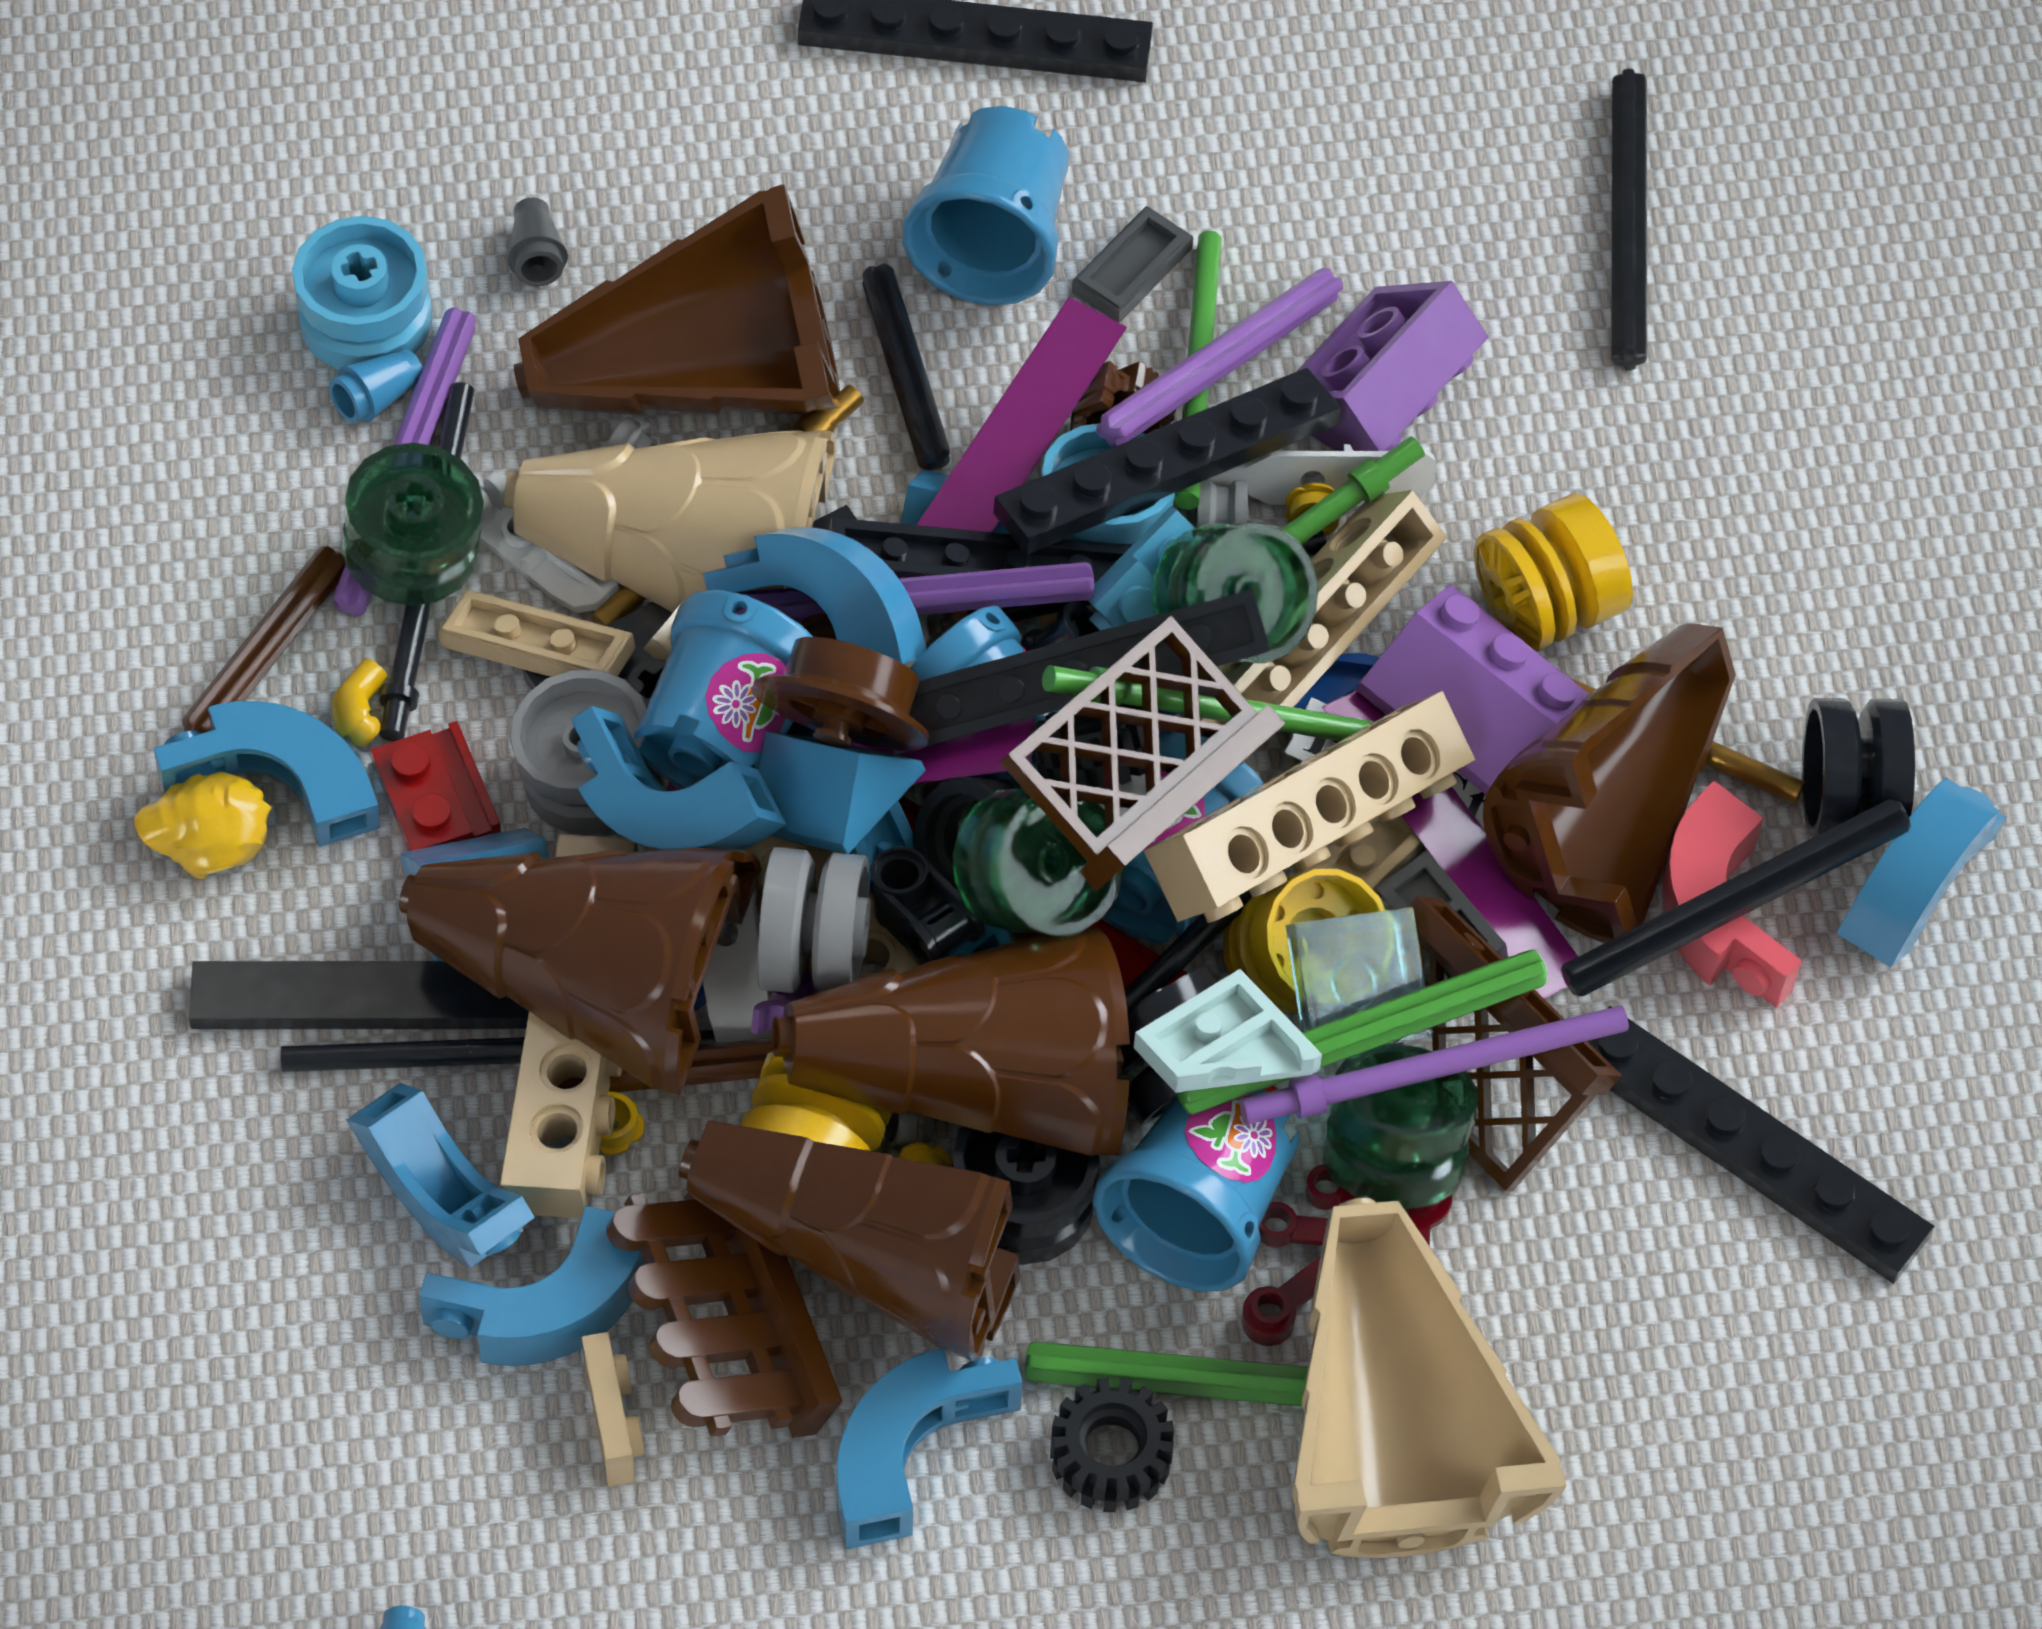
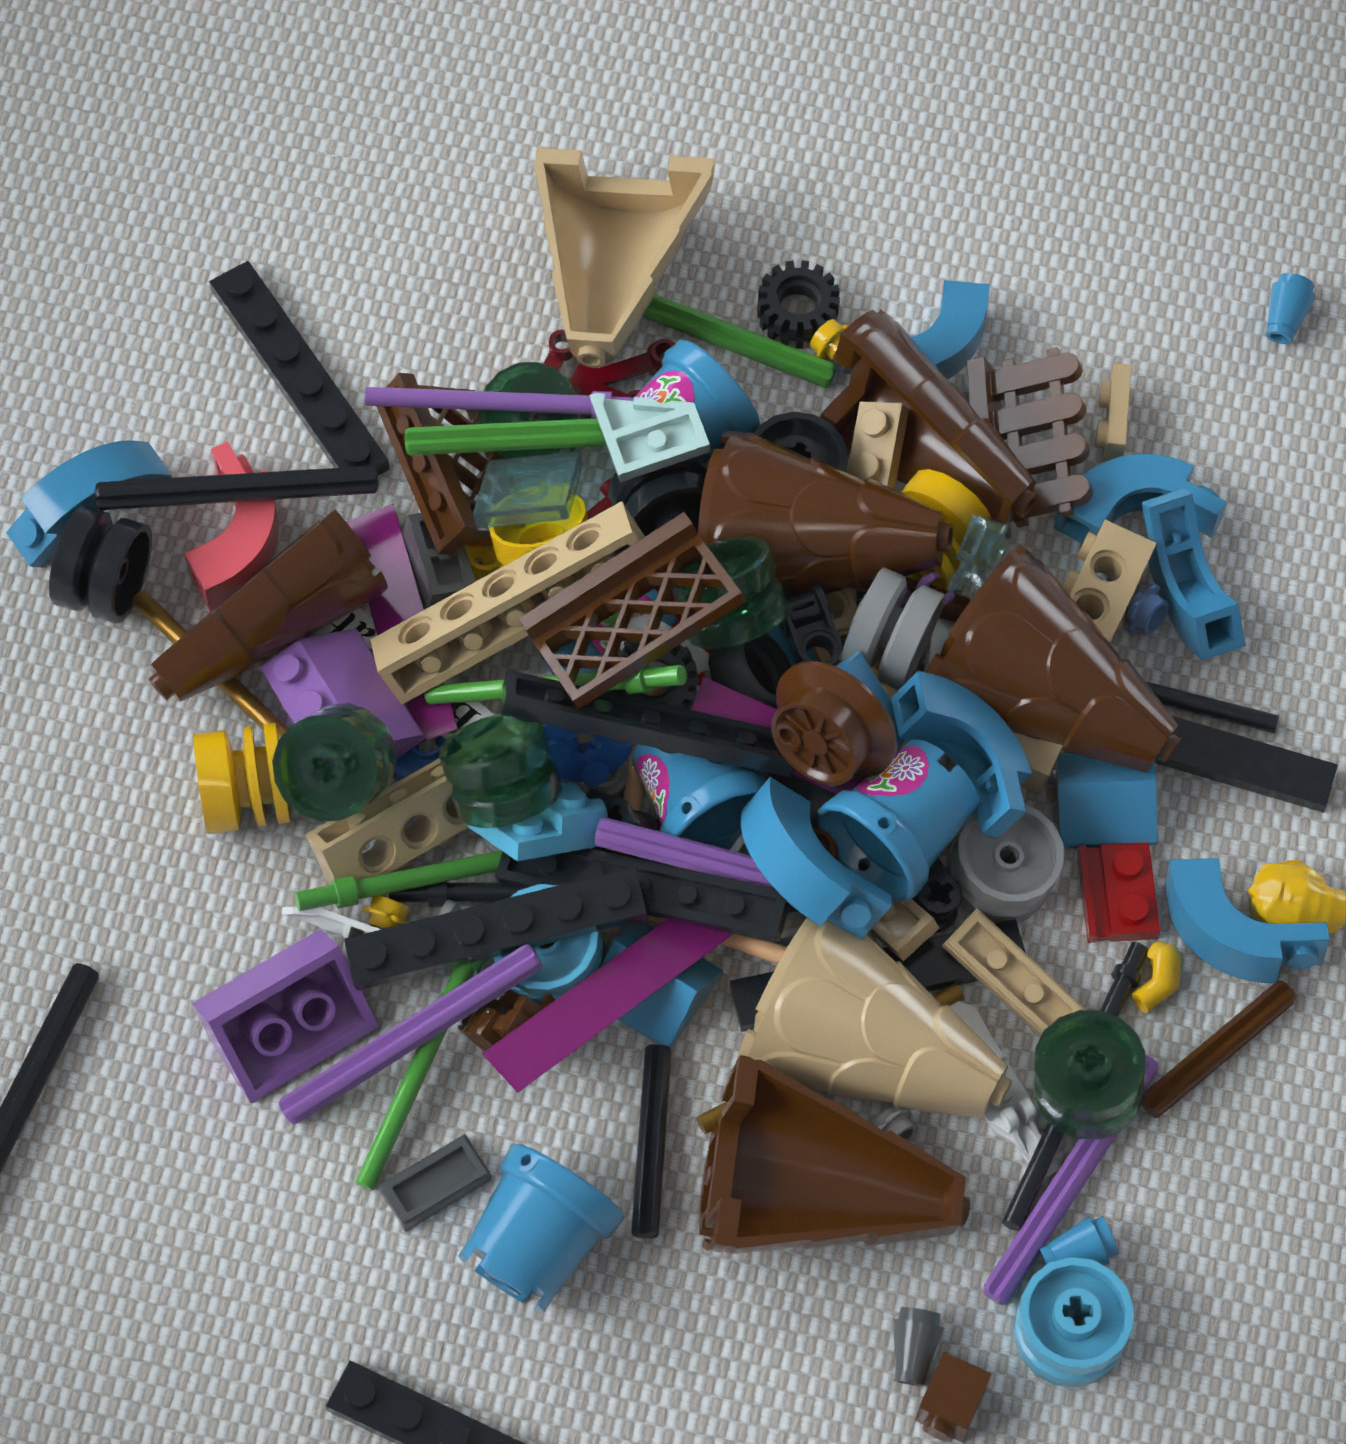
camera: 160 degrees left, 5 degrees up
(477, 199) = (952, 1398): none -> reddish brown brick
(489, 1141) = (1146, 611): none -> medium blue plate
(733, 1084) = (979, 550): none -> clear light blue plate
(1042, 1401) = (826, 339): none -> yellow plate
(1440, 560) = (311, 778): none -> clear green wheel

